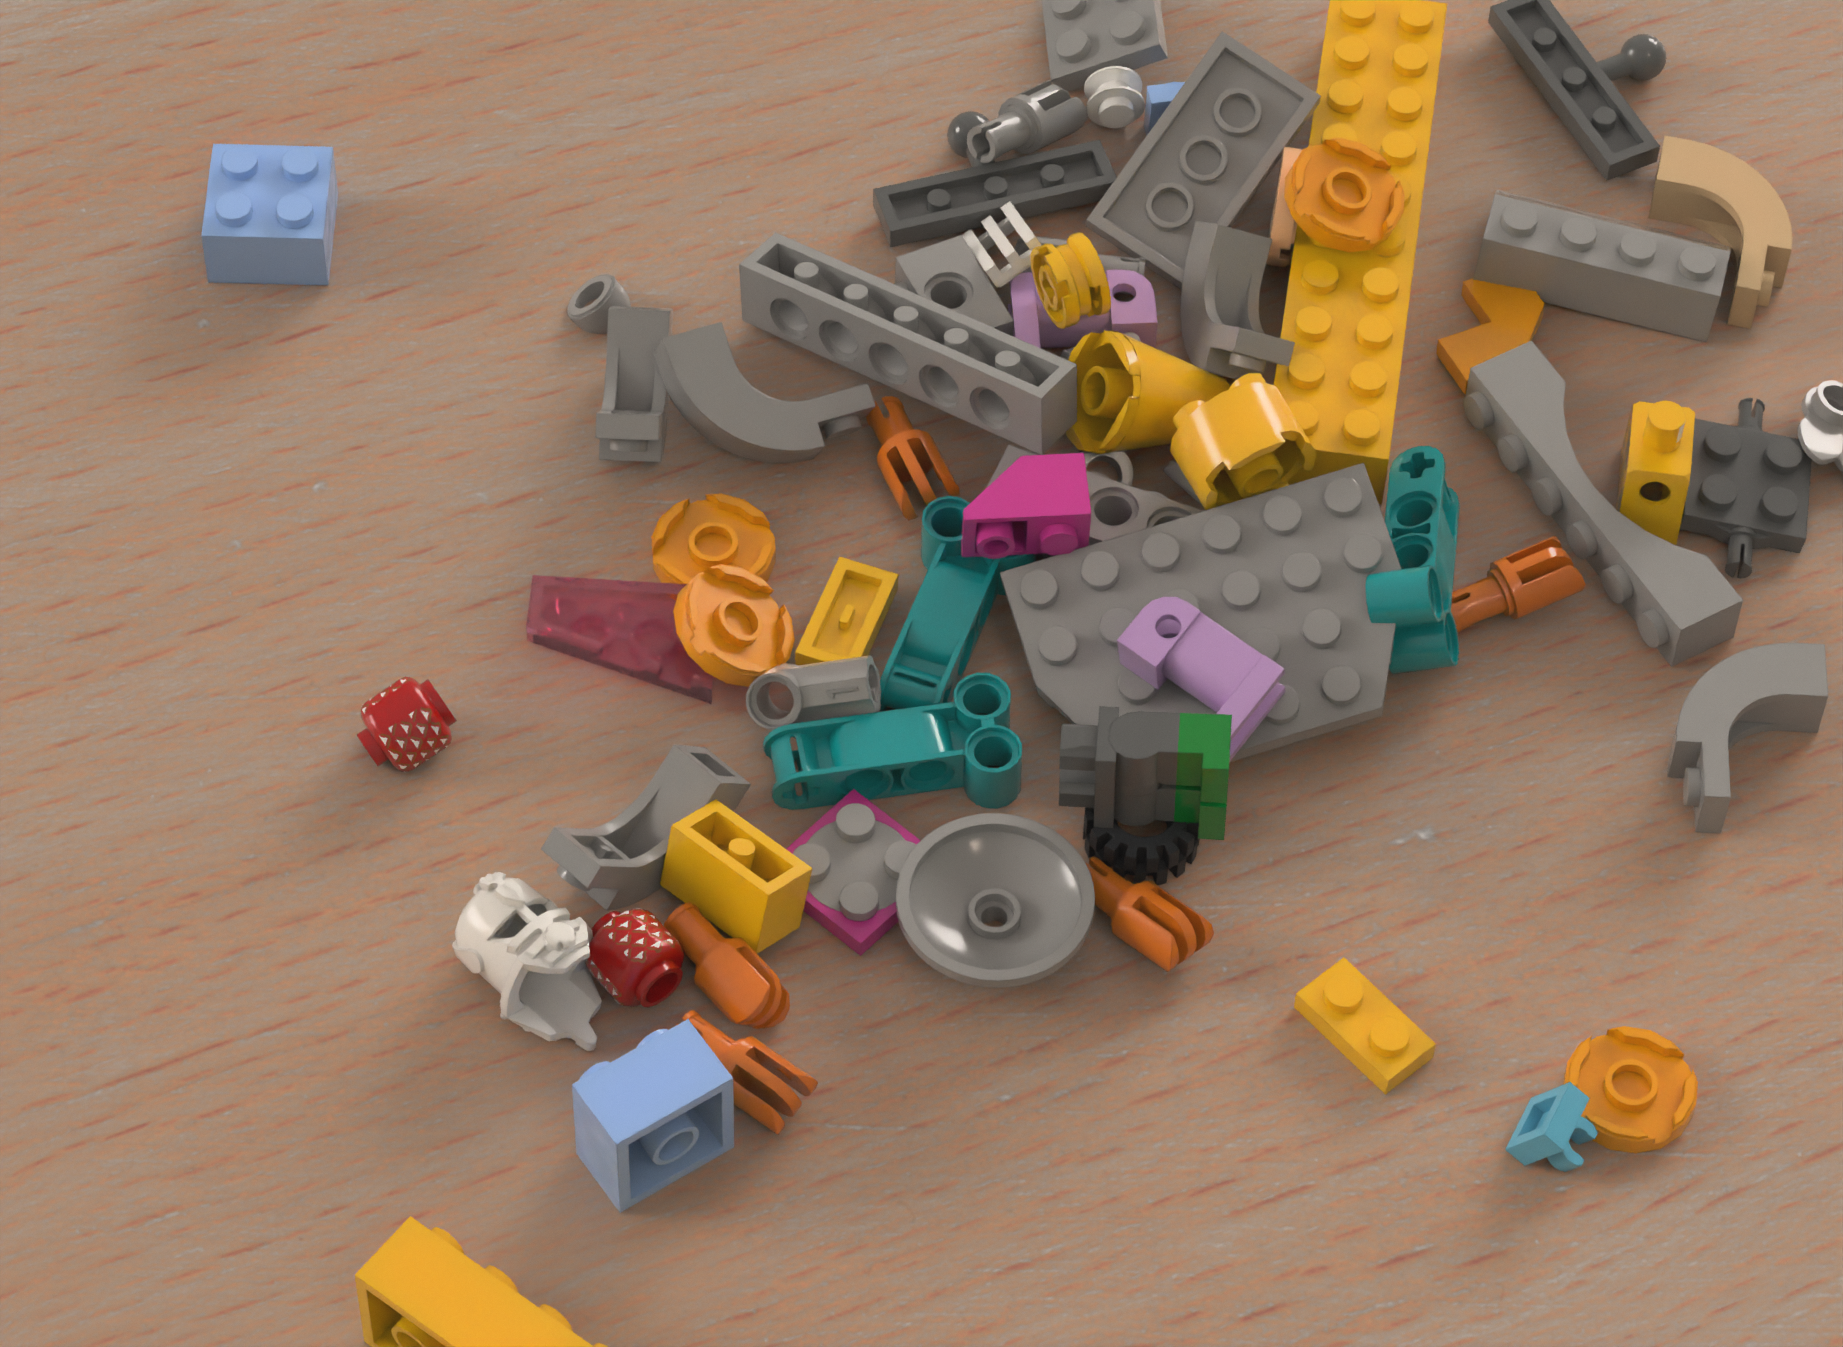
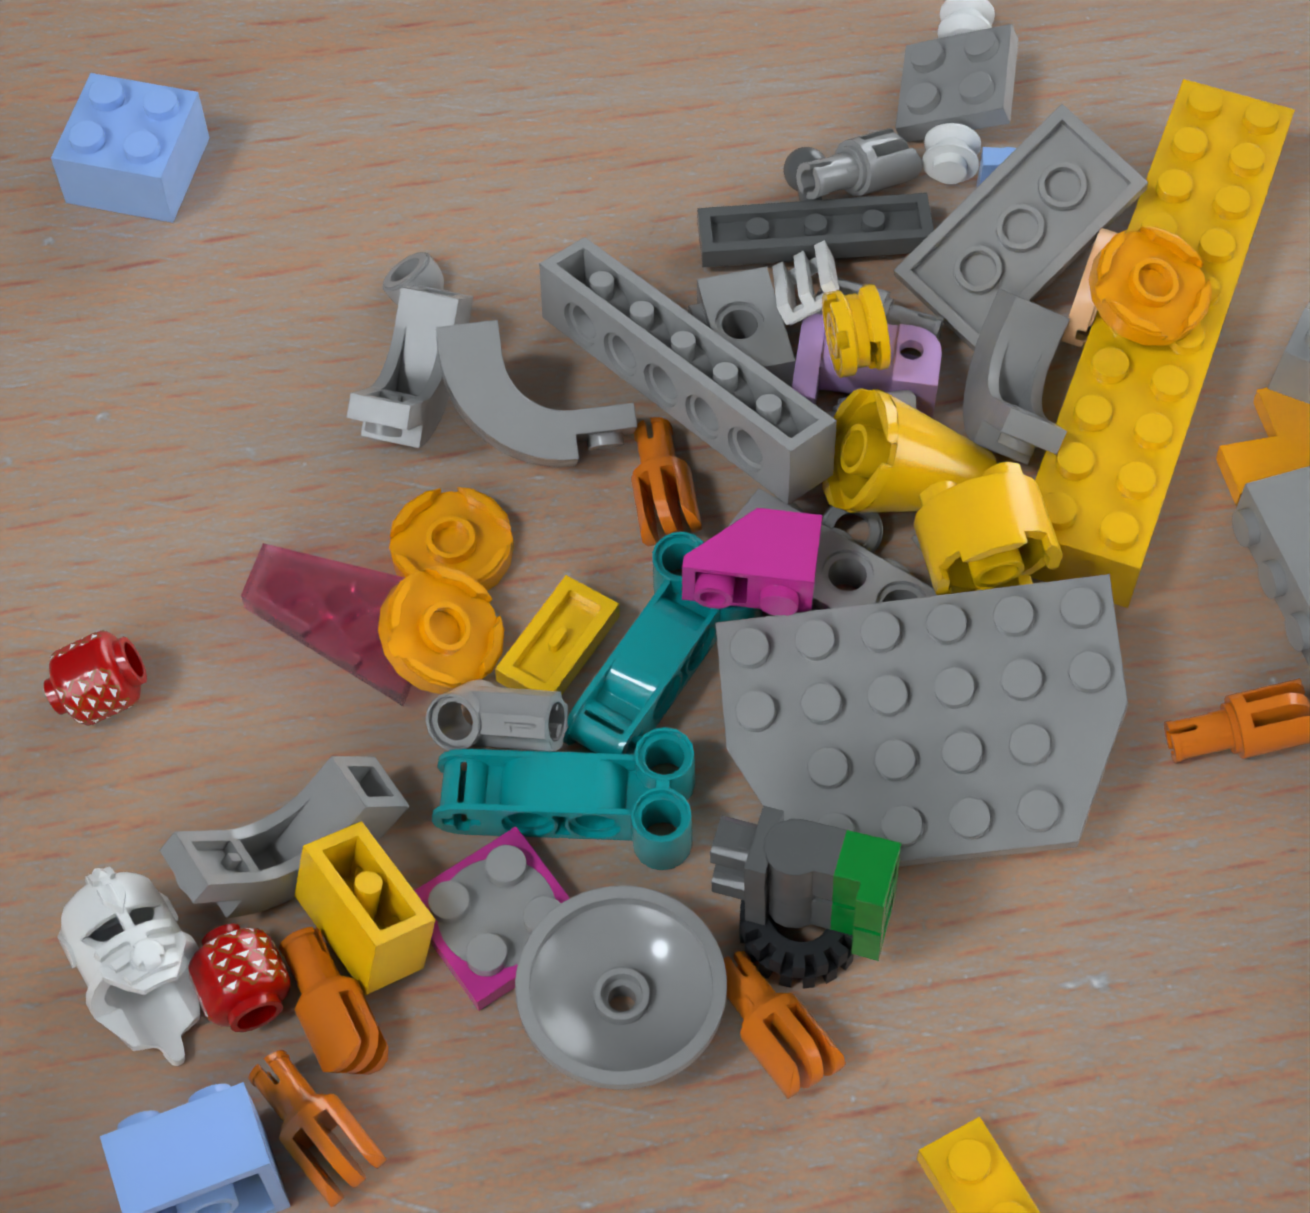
camera: 15 degrees right, 5 degrees up
(1205, 660) = (897, 766): lavender piece -> none
(1424, 532) = (1158, 666): teal piece -> none

